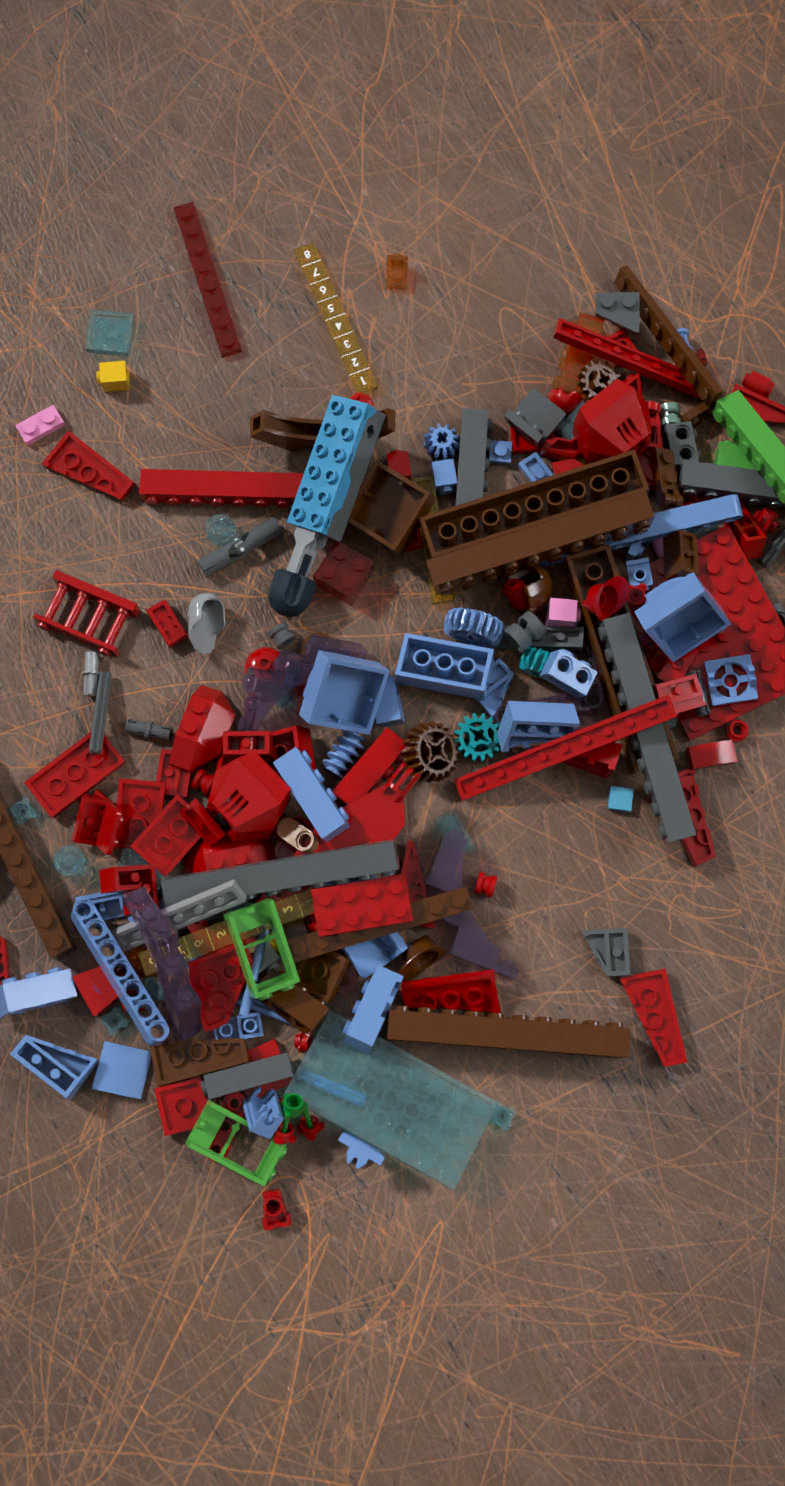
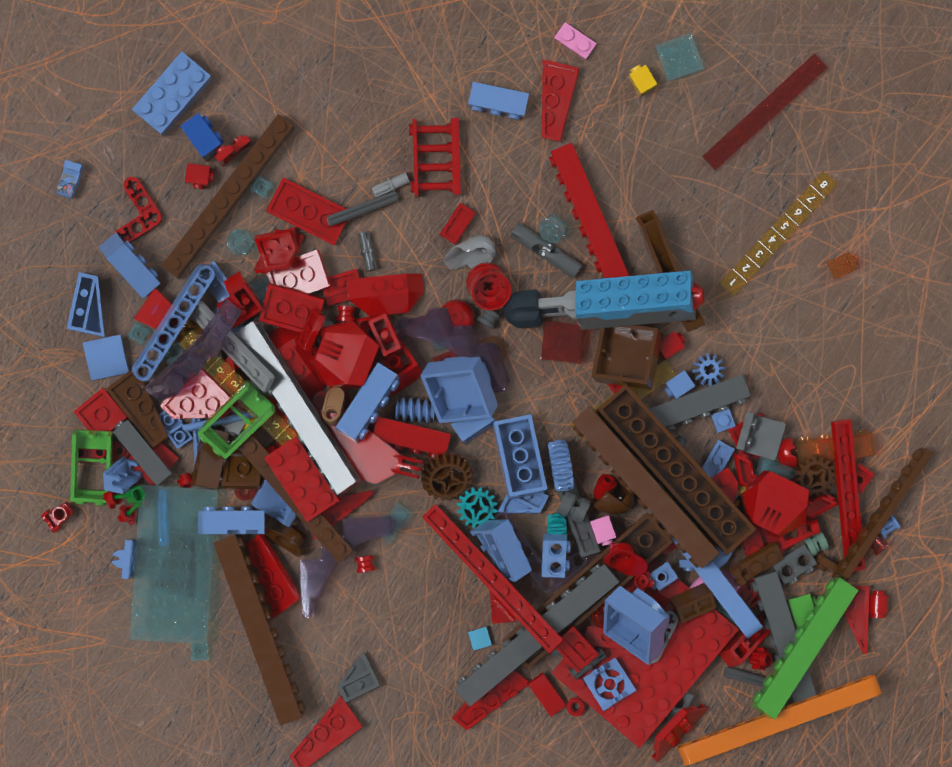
camera: 65 degrees right, 10 degrees up
(60, 525) = (498, 100): none -> medium blue brick
(248, 616) = (488, 296): none -> red wheel
(619, 309) = (887, 464): dark grey wing -> none

